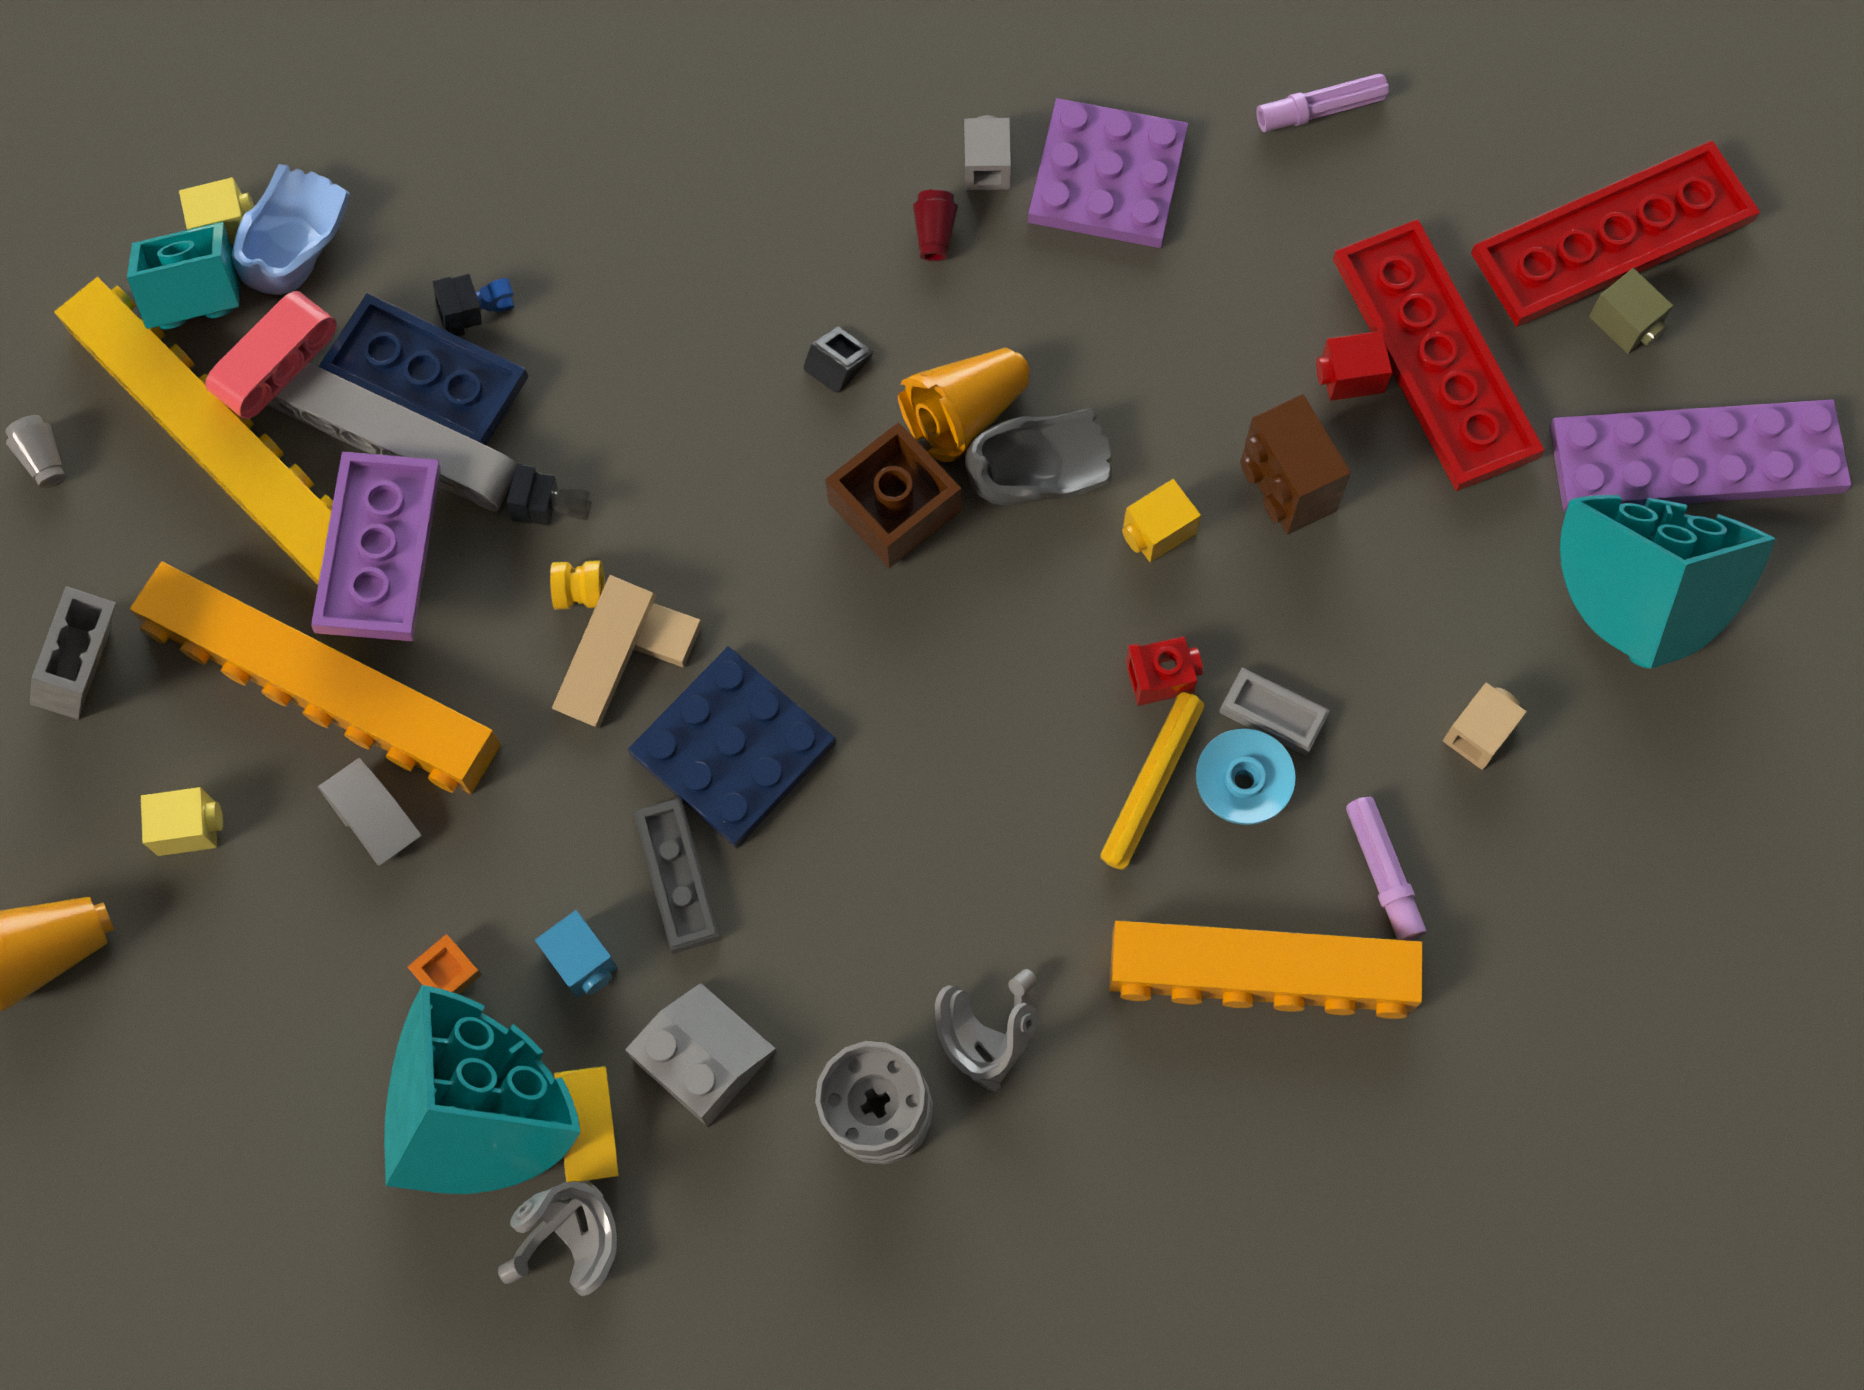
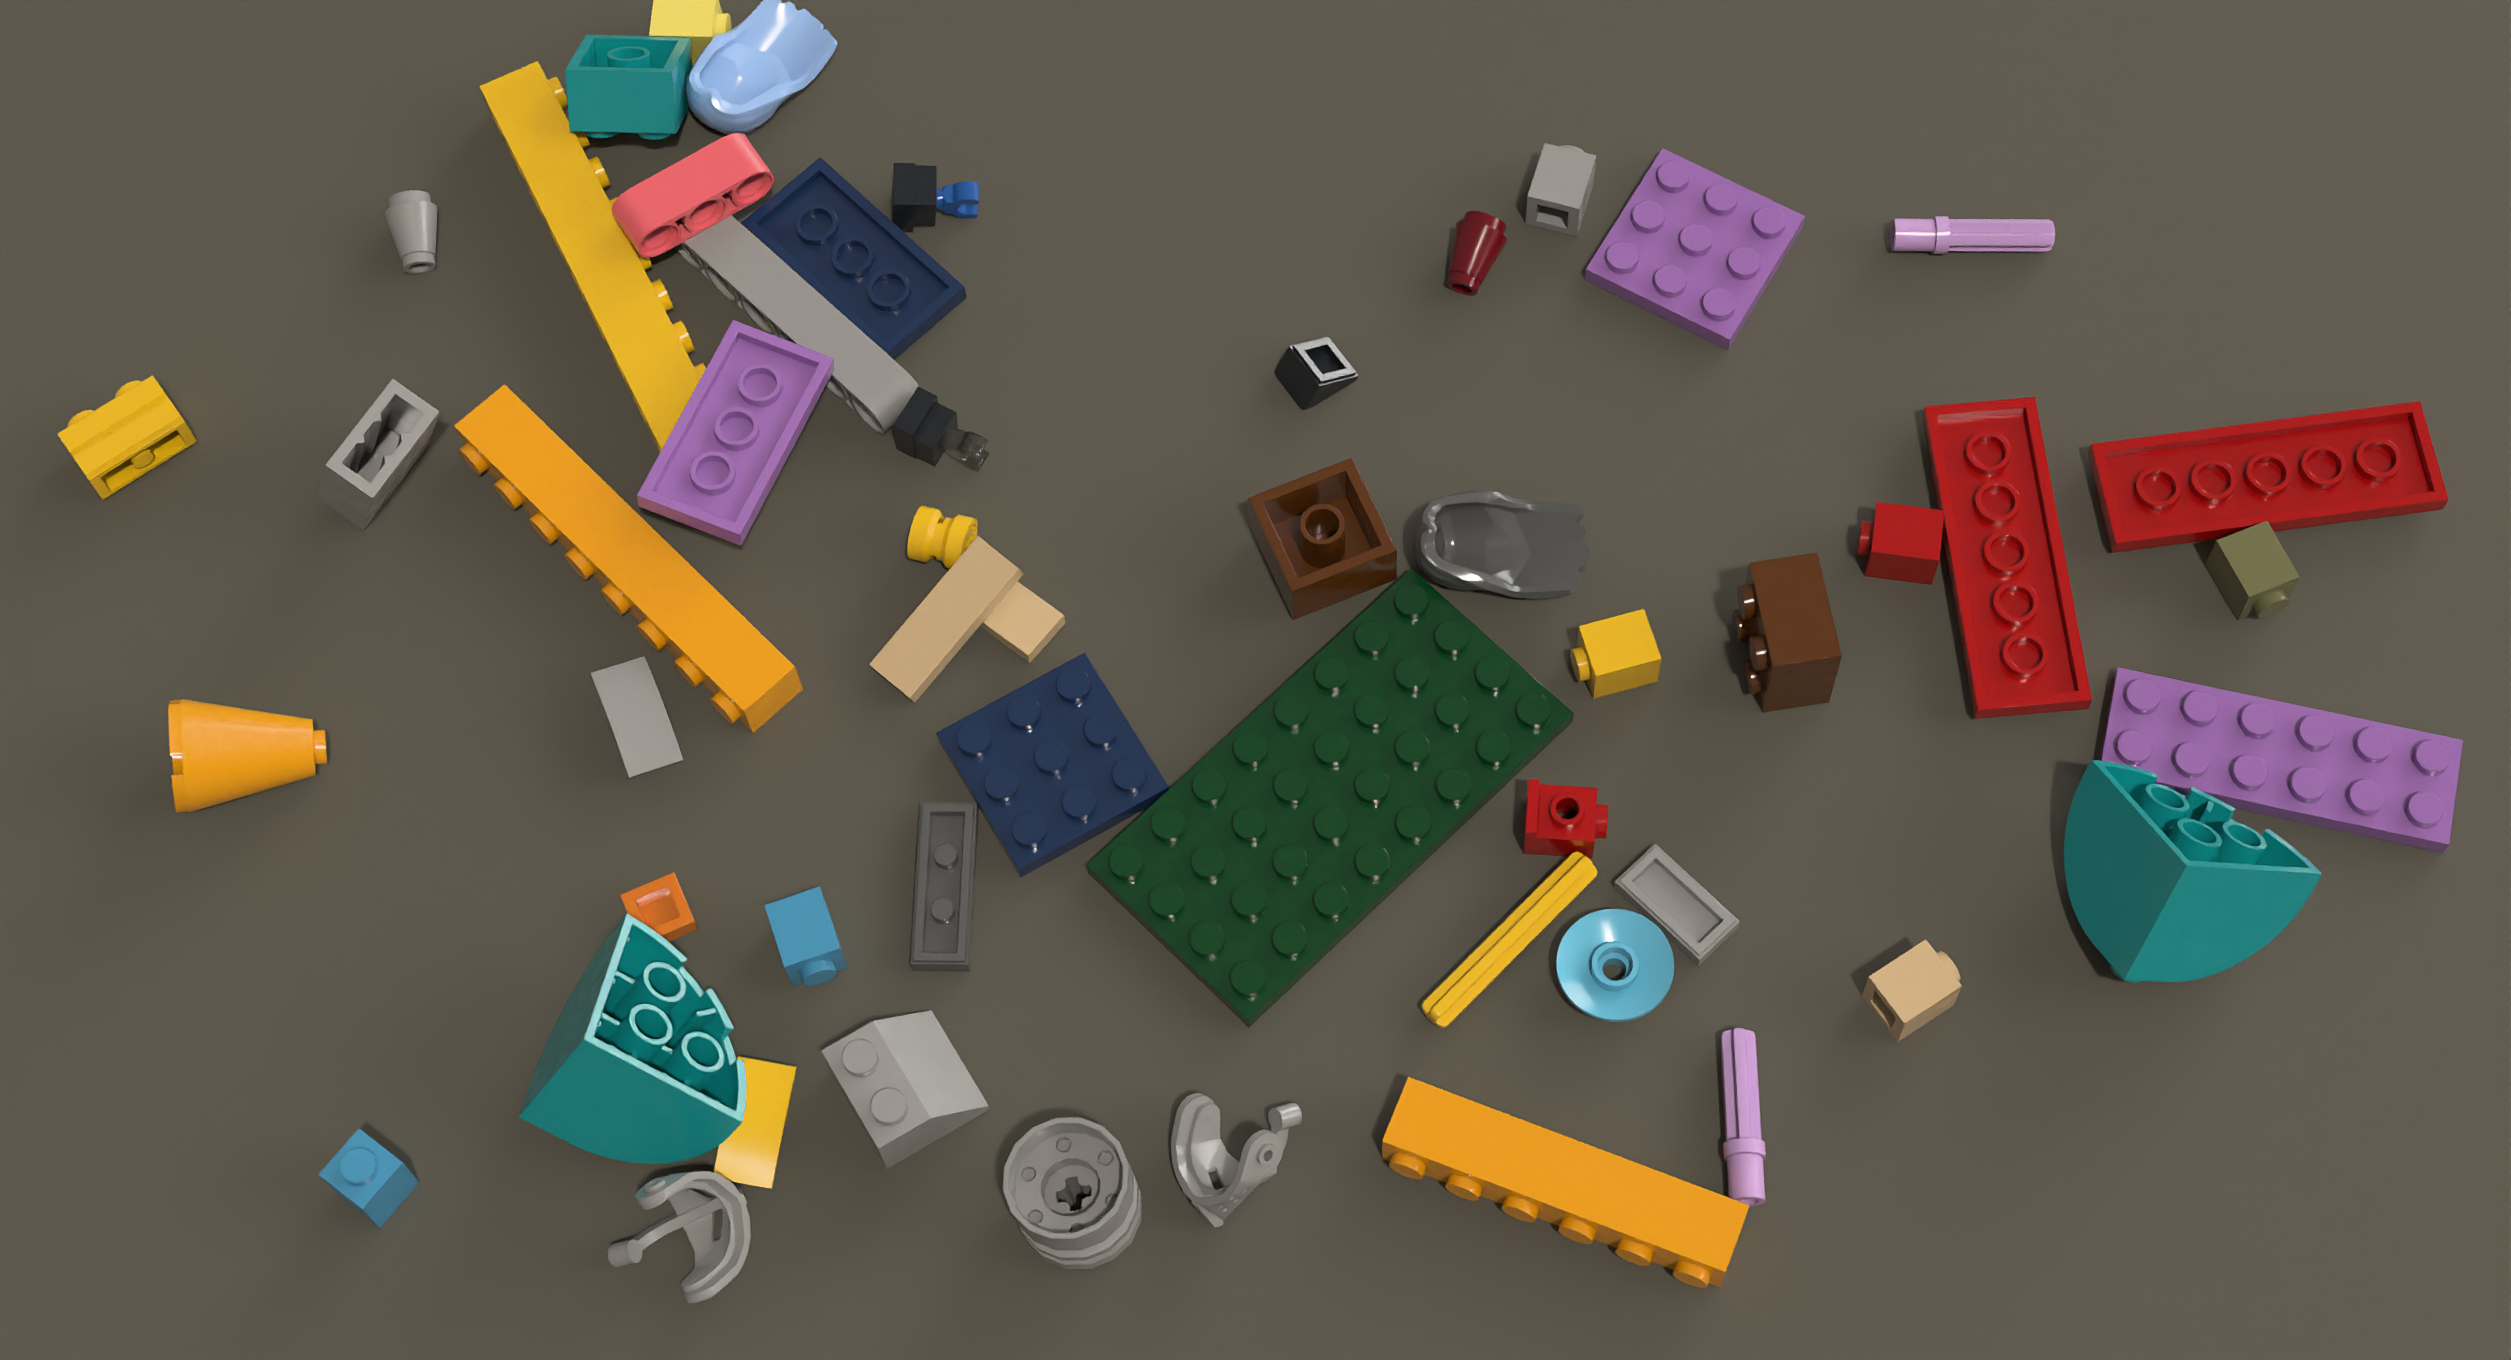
camera: 20 degrees right, 5 degrees down
(180, 821) = (433, 668): light yellow brick -> none
(271, 1276) = (369, 1178): none -> dark azure brick
(961, 399) = (1437, 453): light orange cone -> none
(966, 706) = (1329, 796): none -> dark green plate

